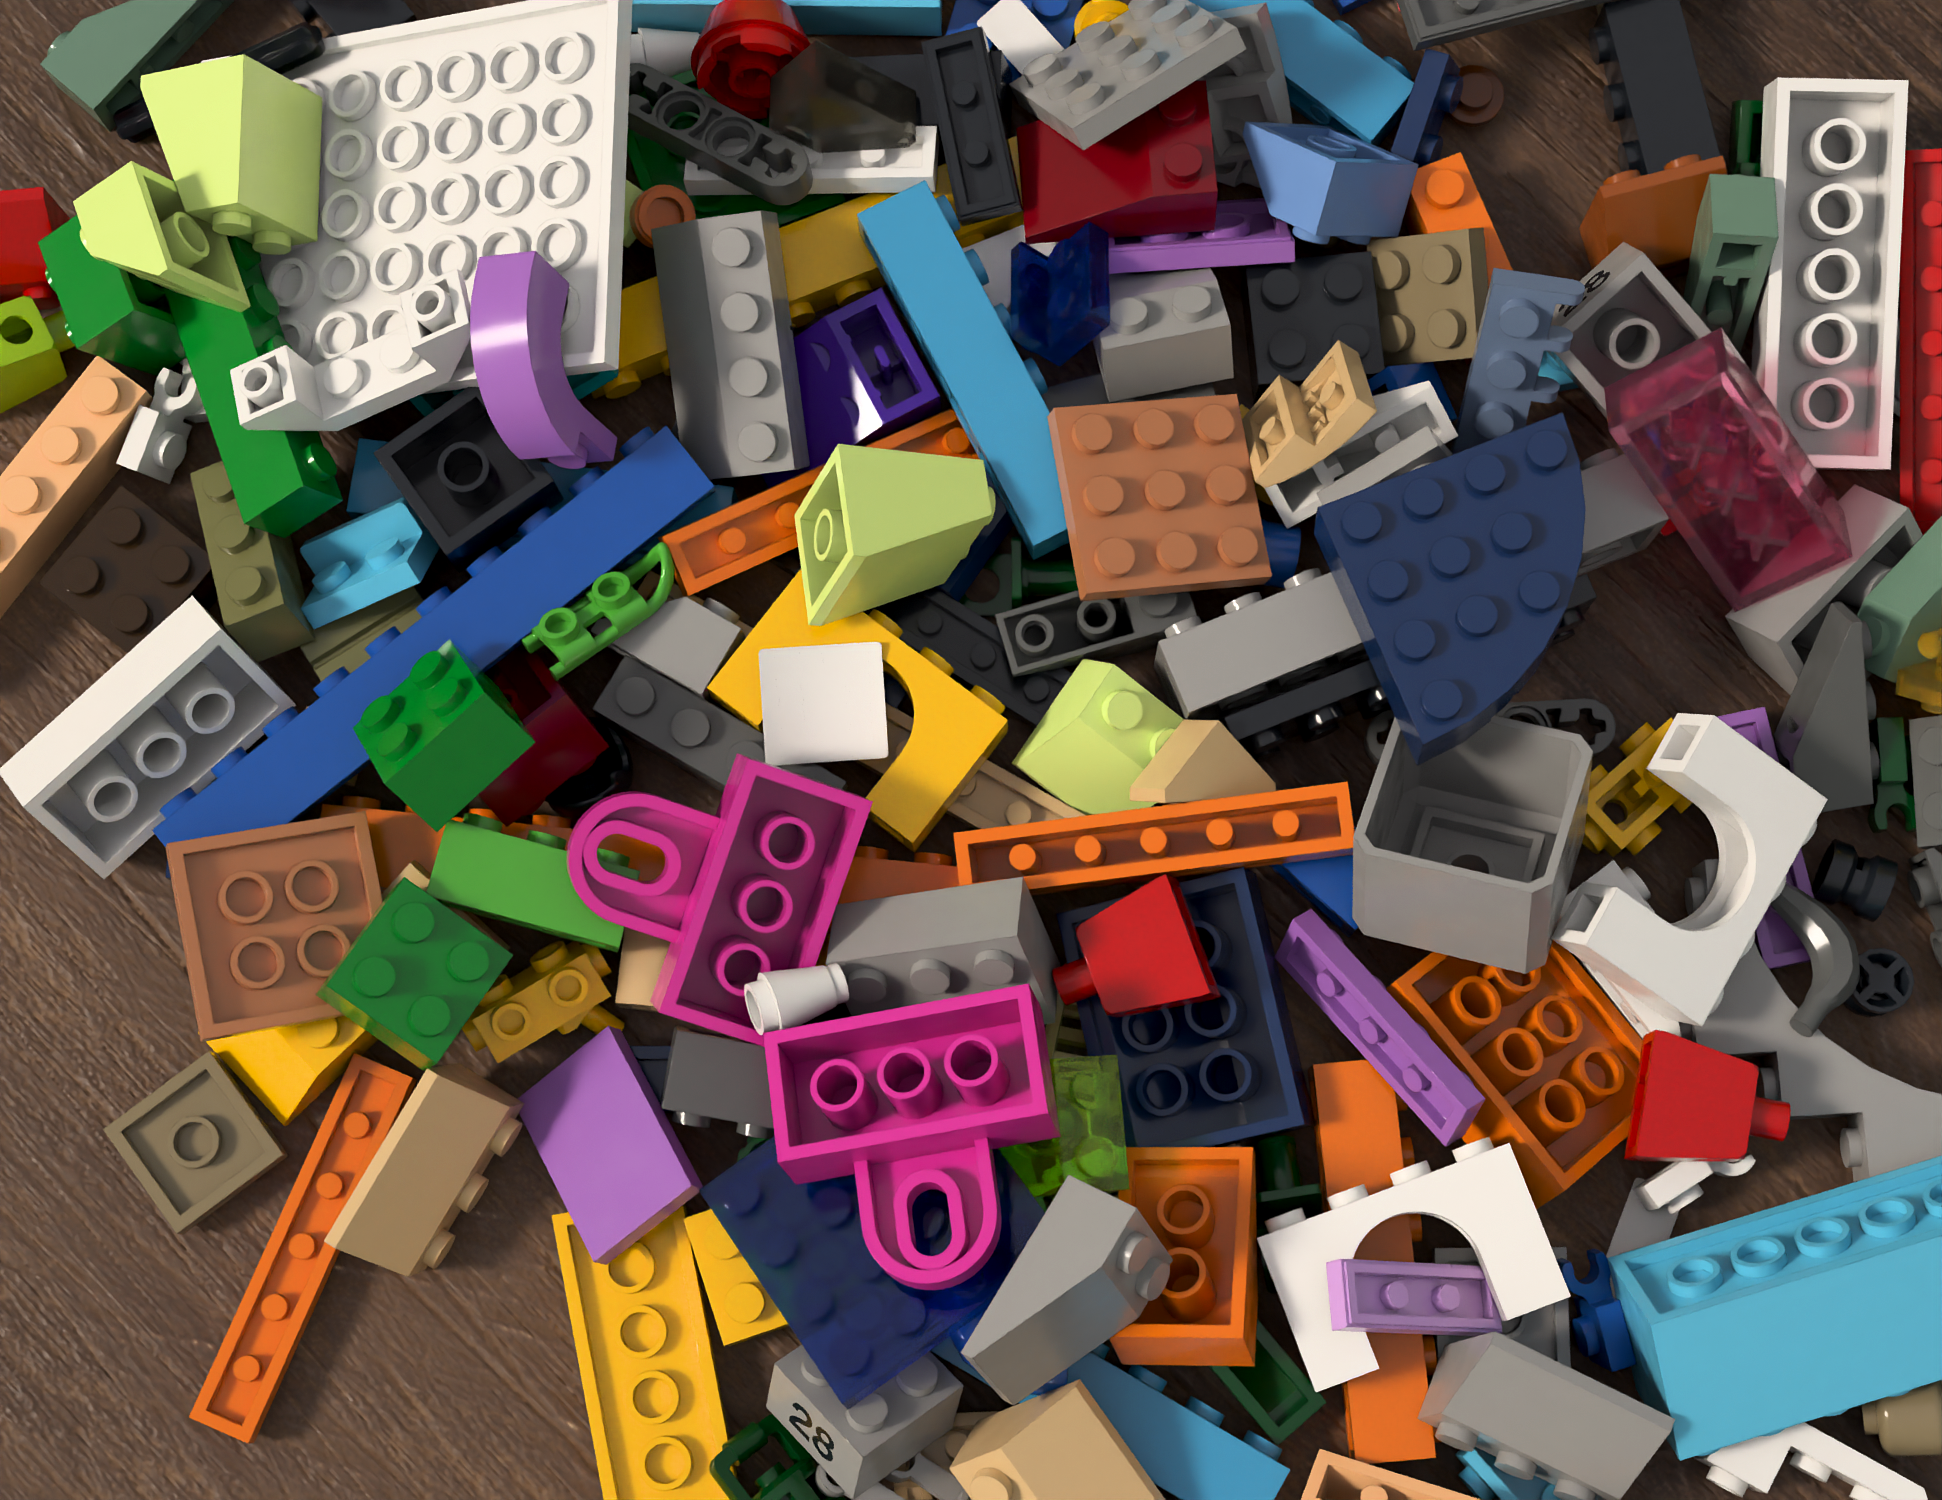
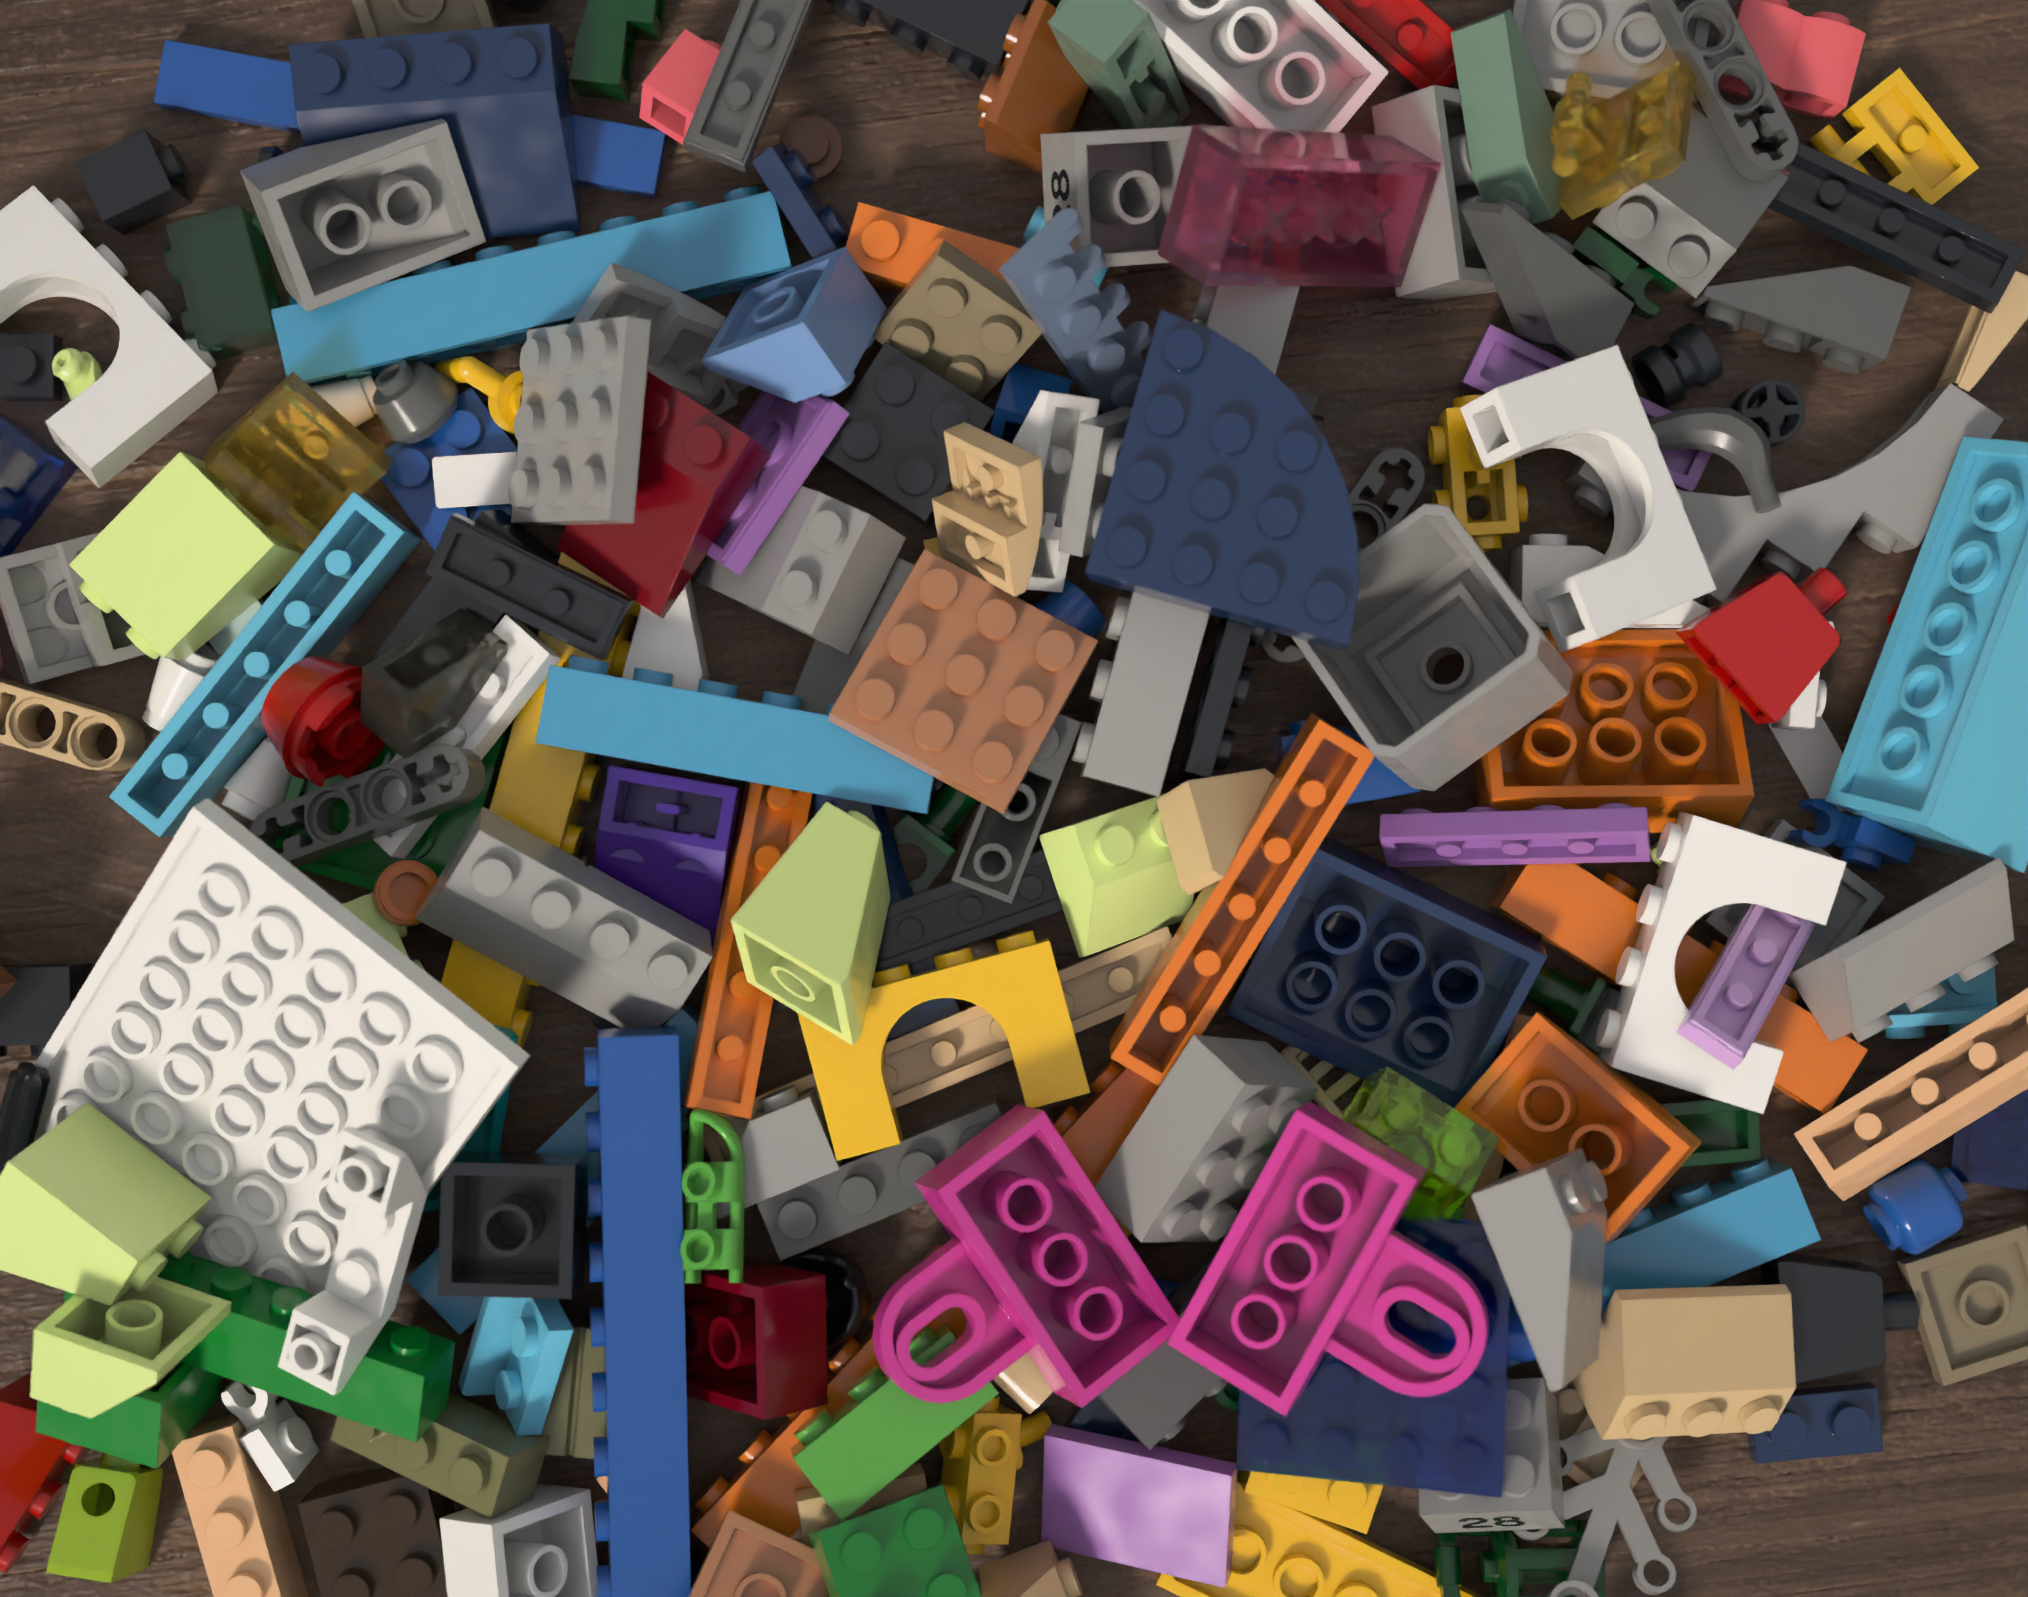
camera: 55 degrees left, 10 degrees up
(442, 735) = (722, 1414): green brick -> none
(520, 364) = (461, 1134): medium lavender arch -> none
(794, 996) = (1152, 1292): white cone -> none
(823, 703) = (921, 1077): white sticker -> none
(1062, 297) = (732, 628): clear blue bracket -> none
(1140, 955) = (1321, 982): red torso -> none

